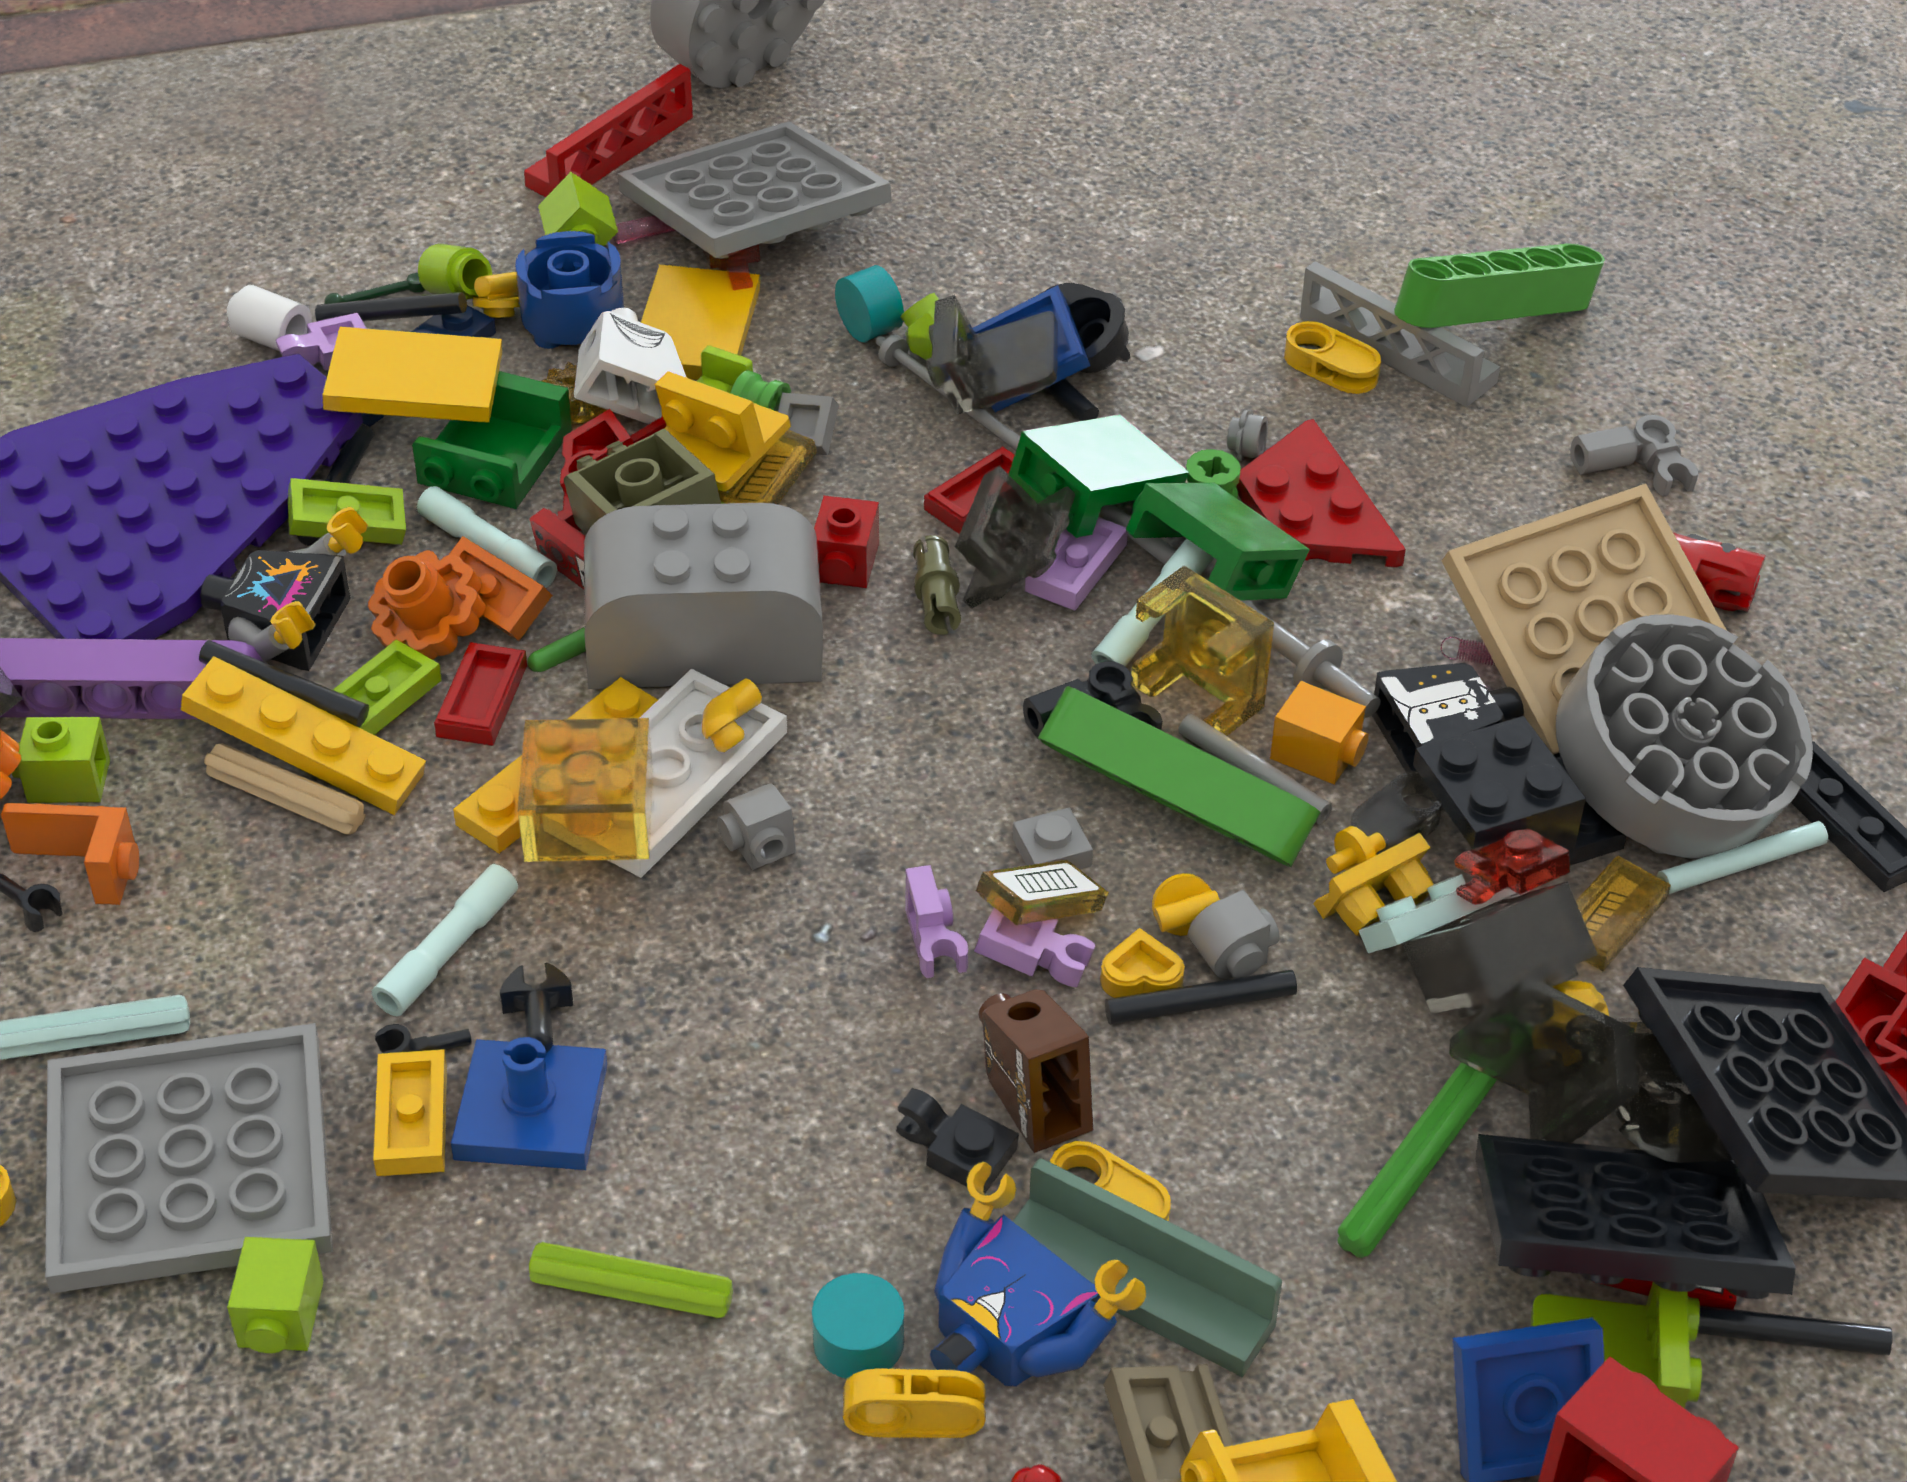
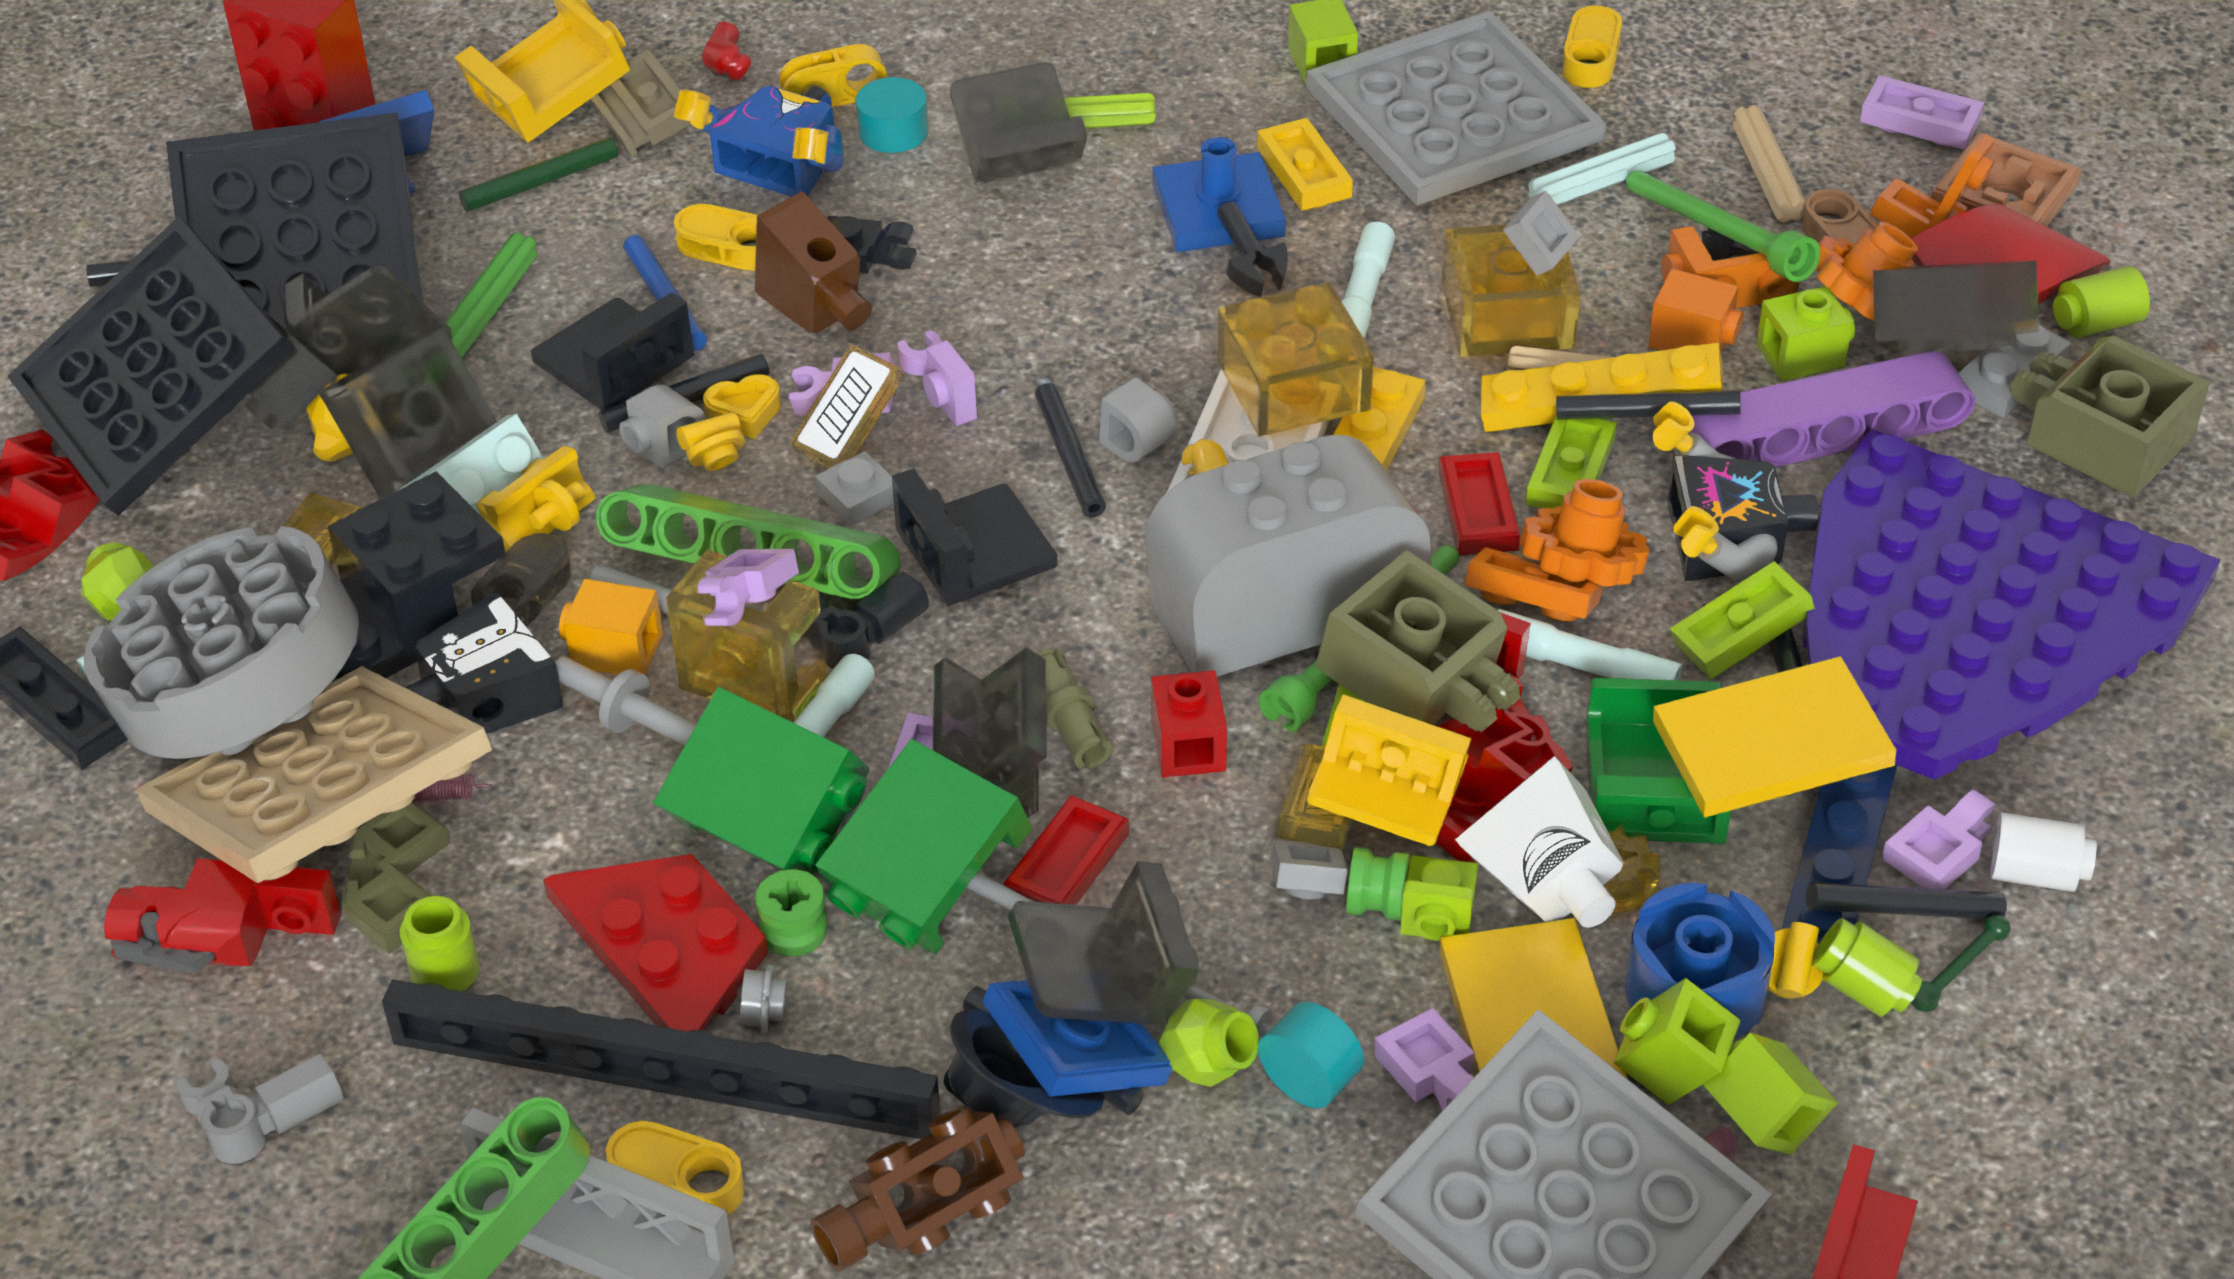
camera: 165 degrees right, 0 degrees up
(32, 772) = (1788, 252): none -> bright green piece
(157, 800) = (1694, 312): none -> orange brick
(275, 808) = (1541, 233): none -> light grey plate
(313, 853) = (1500, 299): none -> clear yellow brick
(397, 1038) = (1343, 214): black hand -> none
(633, 240) = (1676, 1041): none -> lime brick
(721, 1212) = (1016, 123): none -> clear smoke bracket
(786, 299) = (1426, 1058): none -> lavender plate
(830, 838) = (1070, 450): none -> black piece
(966, 748) = (971, 541): none -> black bracket
(1176, 287) = (931, 1188): none -> reddish brown brick
(1193, 1287) = (670, 184): sand green panel -> none
(1198, 1139) = (658, 281): none -> blue bar
(1200, 607) = (745, 579): none -> lavender plate
(1265, 1040) = (618, 349): none -> black bracket
(1320, 1365) = (538, 174): none -> dark green bar
(1337, 406) = (662, 1059): none -> black plate
(1493, 491) = (439, 944): none -> lime brick
(1515, 862) = (394, 466): clear red plate -> none
(1795, 883) = (108, 573): none -> lime rock

